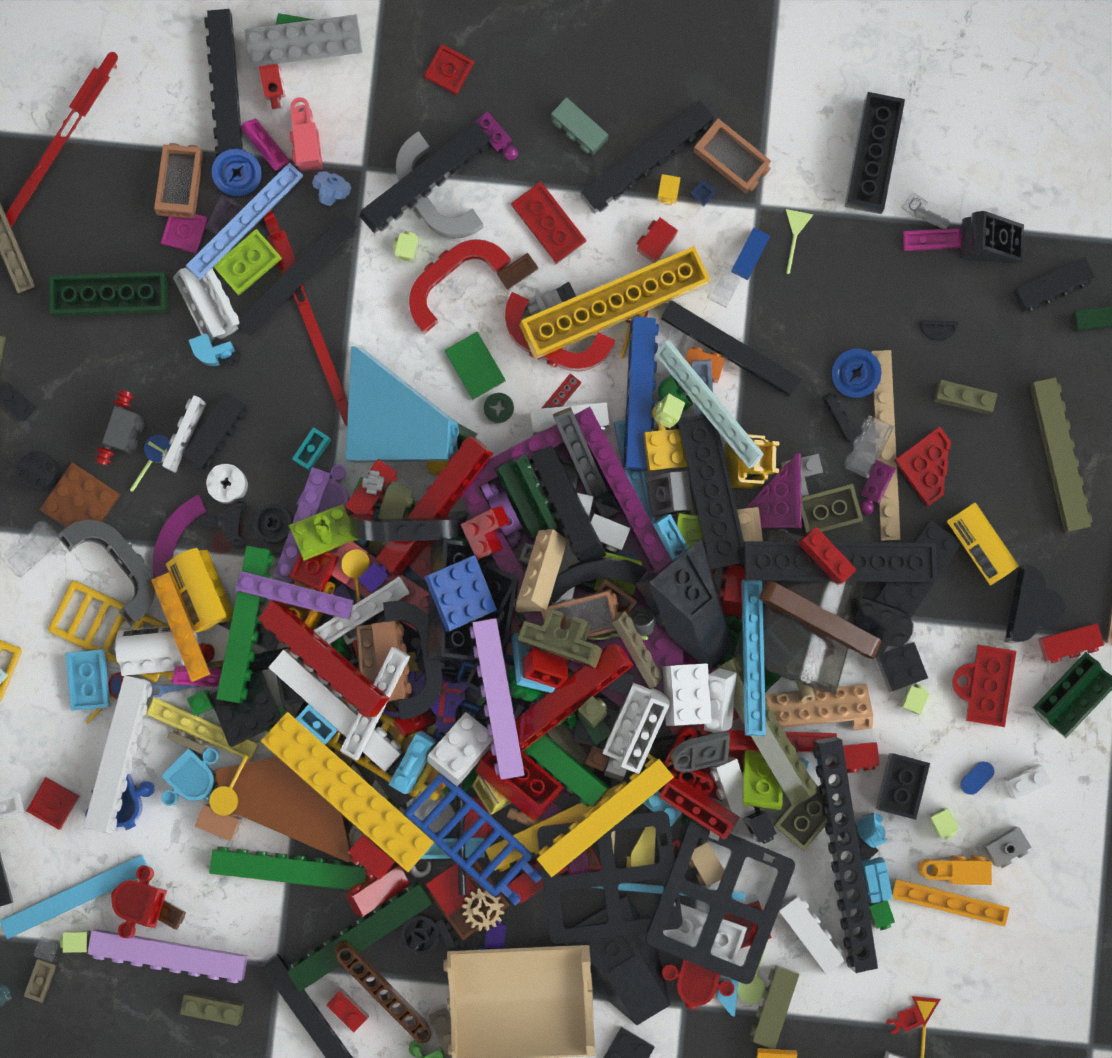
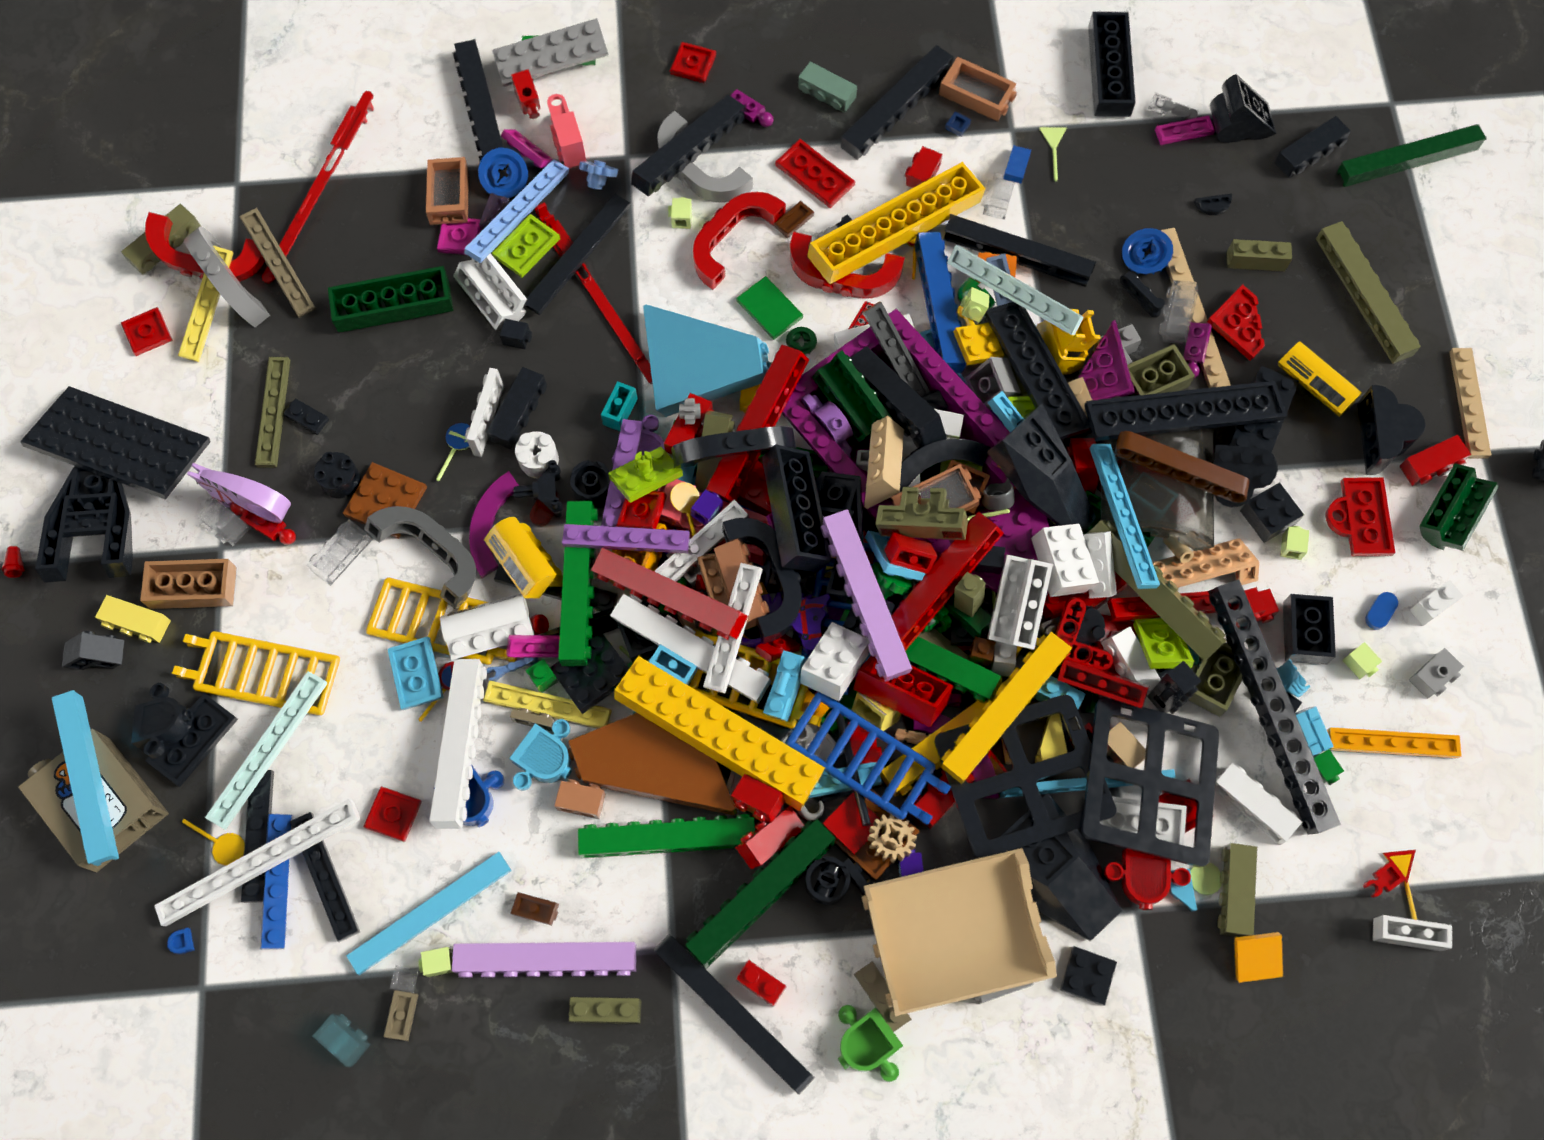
camera: 10 degrees left, 15 degrees down
(121, 430) = (419, 420): dark grey brick -> none
(138, 902) = (502, 901): red piece -> none
(180, 627) = (509, 594): light orange plate -> none
(206, 353) = (498, 330): medium azure brick -> none
(224, 799) = (584, 769): yellow piece -> none
(386, 1000) = (809, 953): reddish brown beam -> none
(460, 593) = (803, 493): blue plate -> none
(481, 531) = (812, 434): red brick -> none
(637, 649) = (998, 513): dark tan plate -> none
(668, 189) = (924, 125): yellow brick -> none
(701, 752) = (1094, 619): dark grey tile -> none
(827, 556) = (1174, 400): red brick -> none
(959, 870) = (1396, 703): light orange brick -> none

